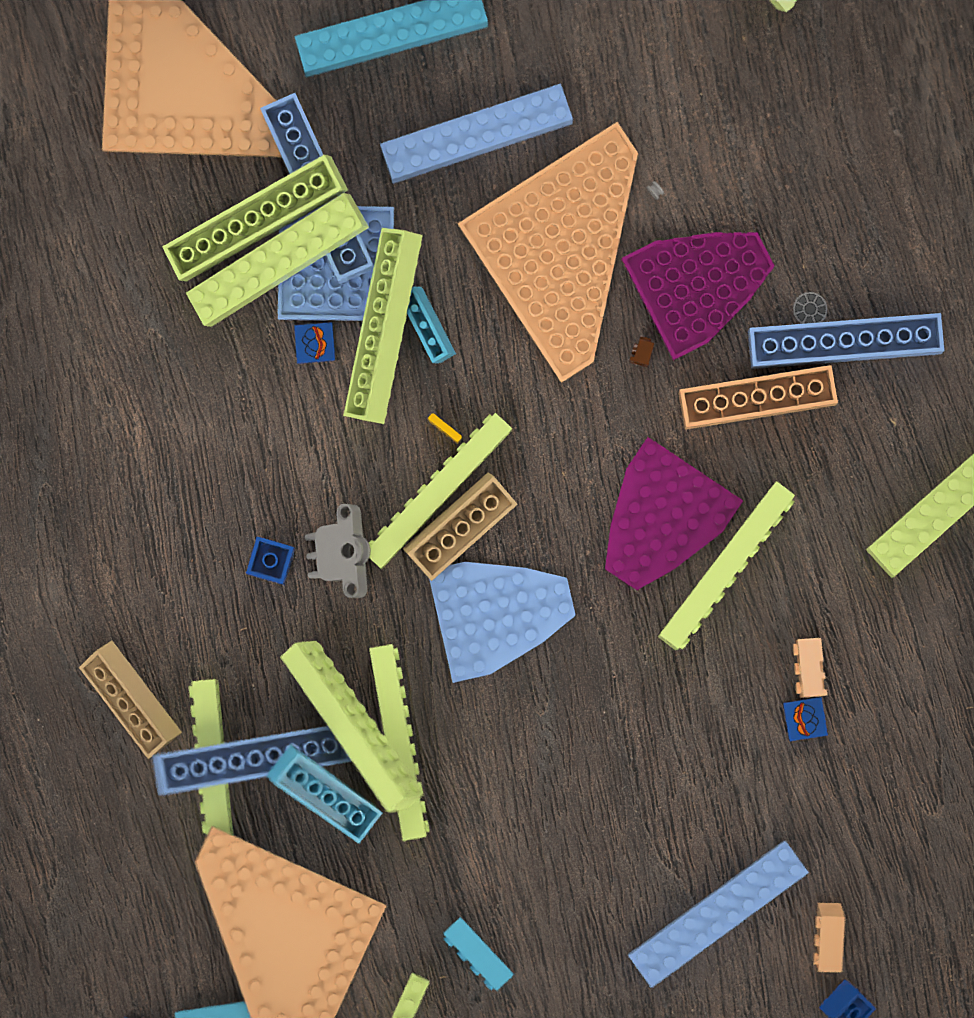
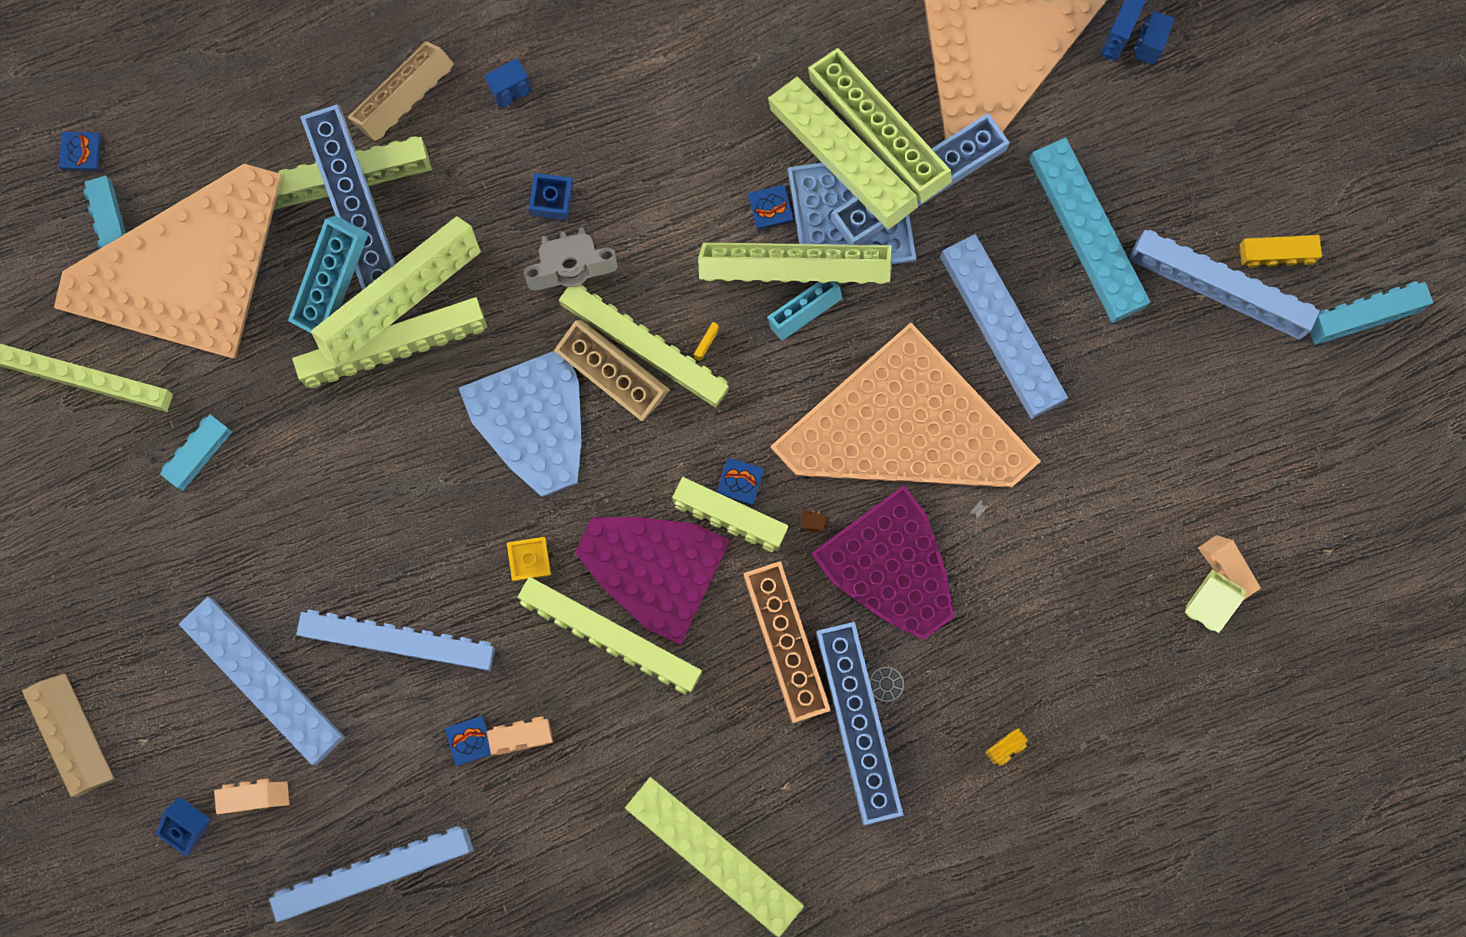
camera: 80 degrees right, 5 degrees down
(143, 586) = (508, 83): none -> blue brick
(590, 417) = (740, 481): none -> blue tile
(624, 432) = (729, 514): none -> yellowish green brick
(636, 636) = (528, 558): none -> yellow plate
(698, 777) = (396, 641): none -> light blue brick
(889, 204) = (1011, 743): none -> yellow brick
(921, 828) = (369, 875): none -> light blue brick

